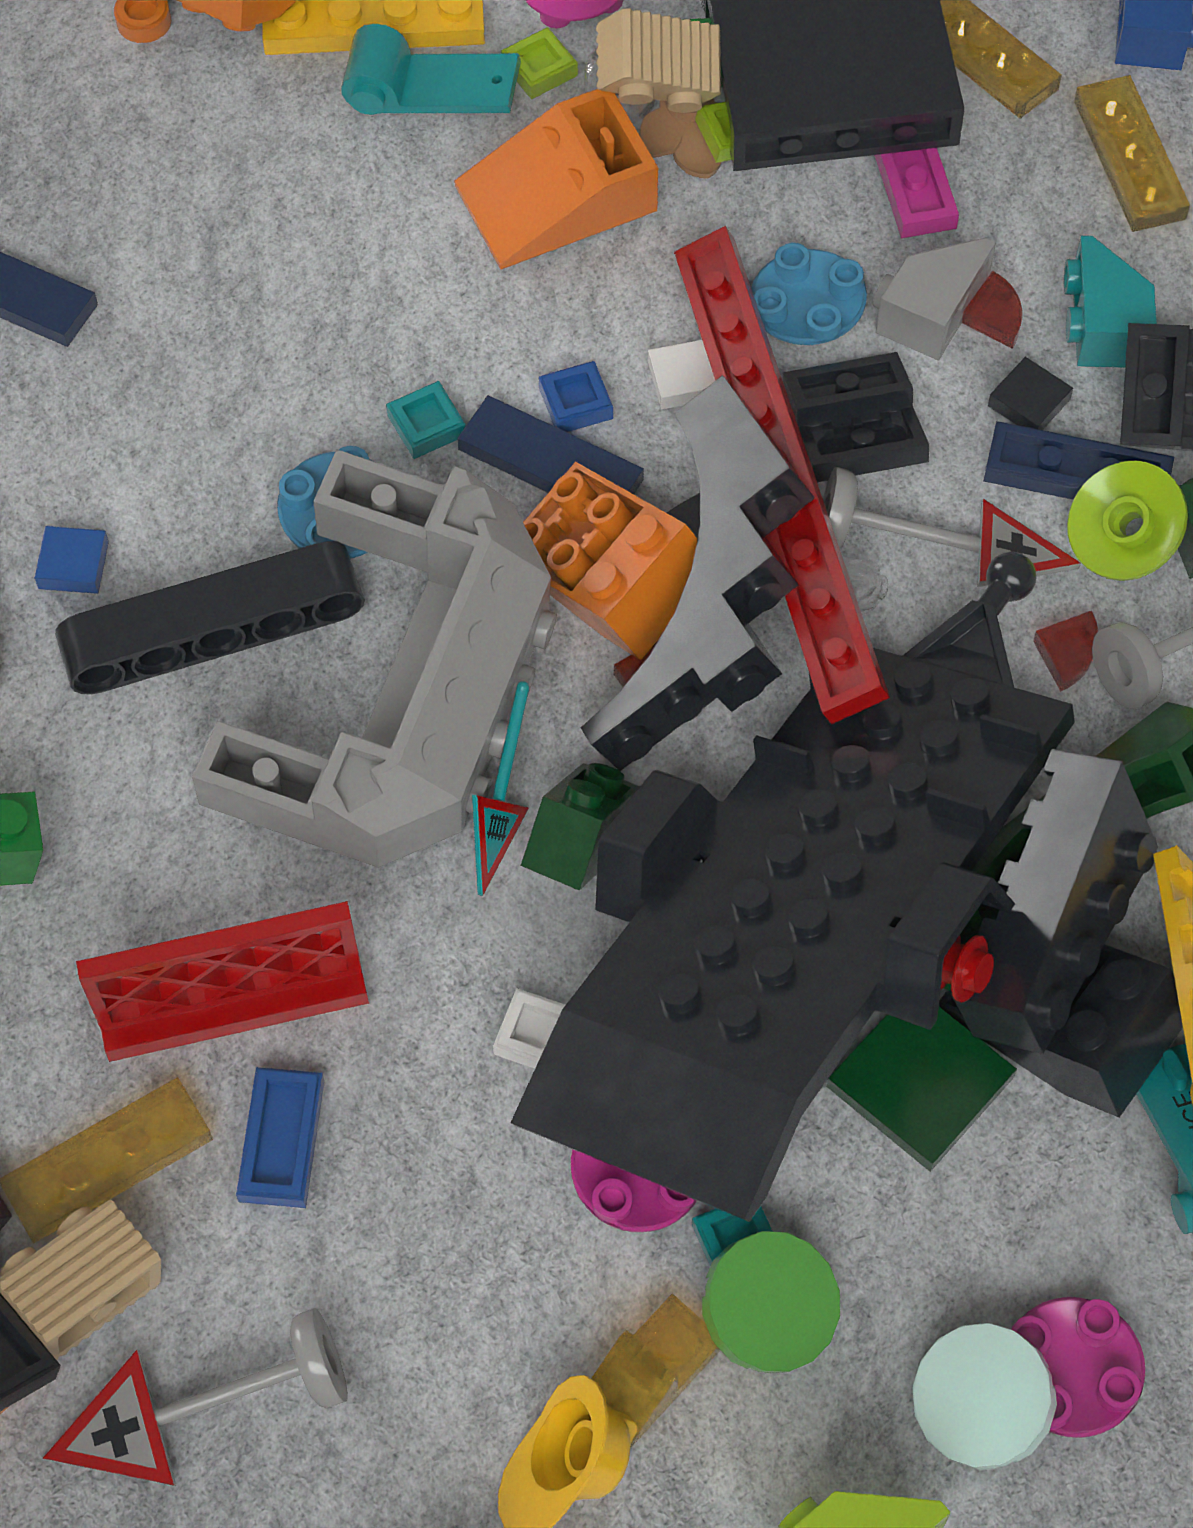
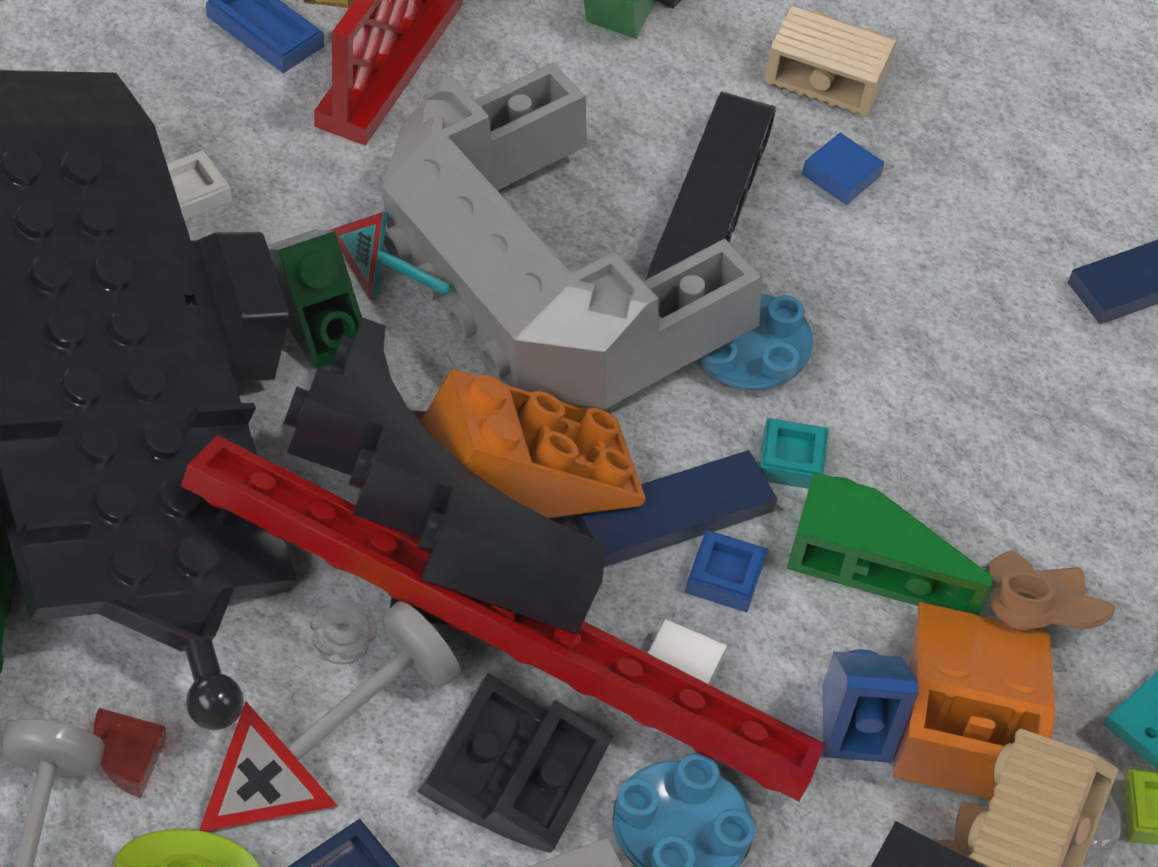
camera: 120 degrees right, 10 degrees down
(423, 196) = (1045, 597): none -> medium nougat plate
(482, 321) = (876, 546): none -> green slope
(629, 228) = (866, 705): none -> blue slope

